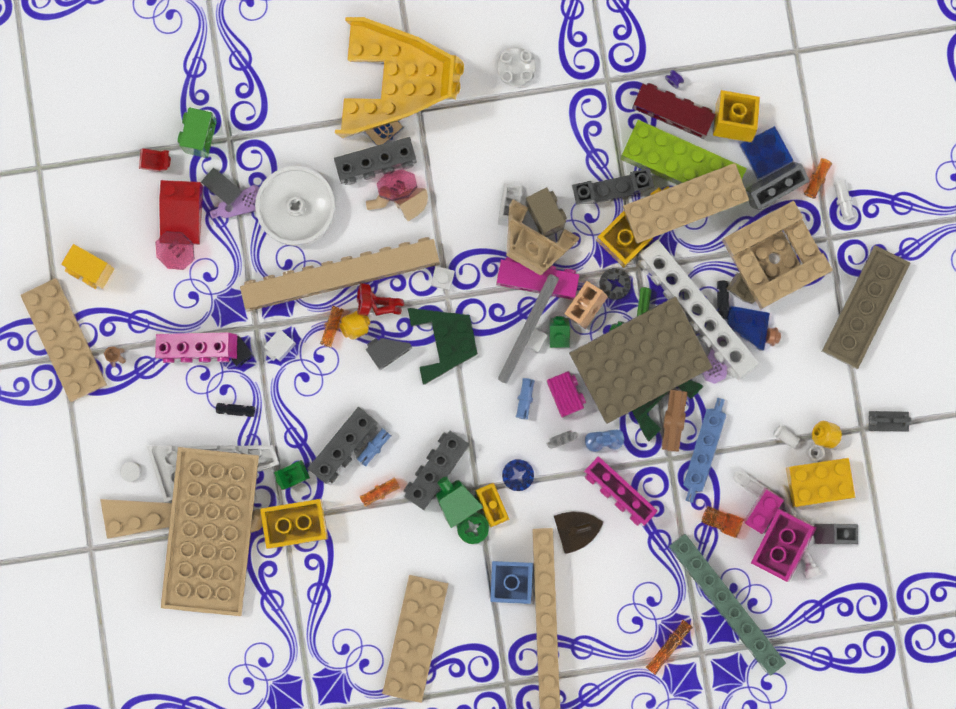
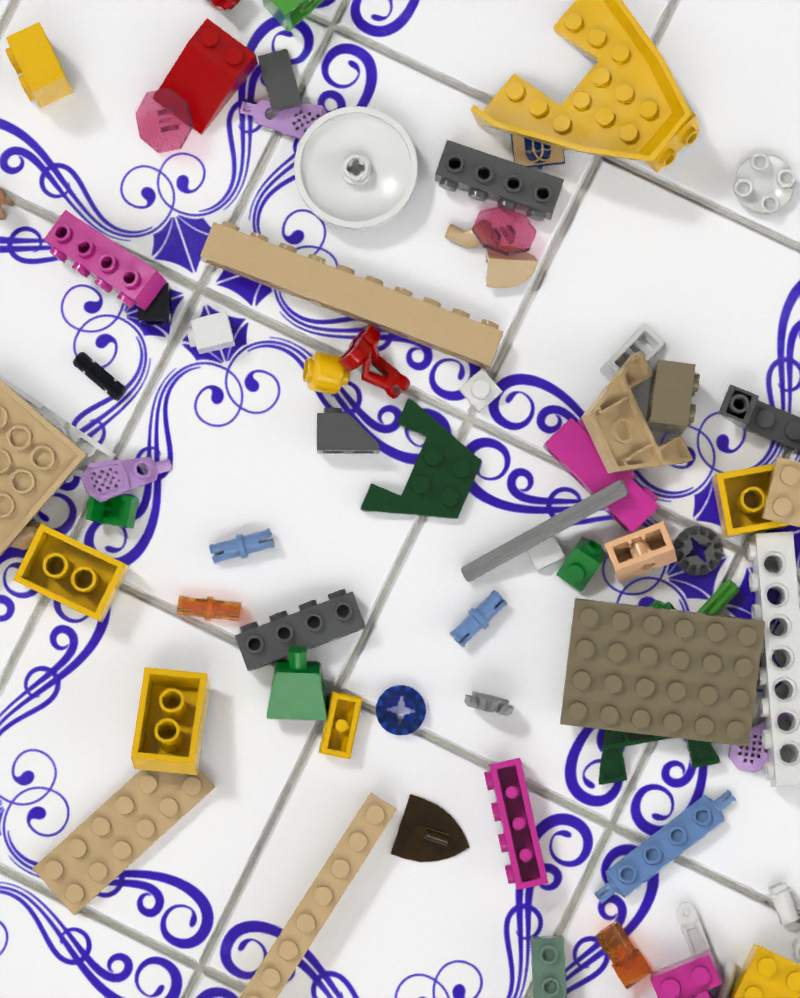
camera: 35 degrees right, 0 degrees up
(284, 451) = (126, 474): none -> lavender piece
(331, 326) = (295, 354): clear orange pin -> none
(343, 445) = (203, 516): dark grey brick -> none
(401, 564) = (170, 721): none -> yellow brick
(482, 530) = (284, 747): green gear -> none
(511, 582) = (295, 842): medium blue brick -> none
(565, 394) = (534, 649): dark pink brick -> none
(597, 440) = (552, 746): medium blue piece -> none
(674, 420) = (651, 780): medium nougat piece -> none

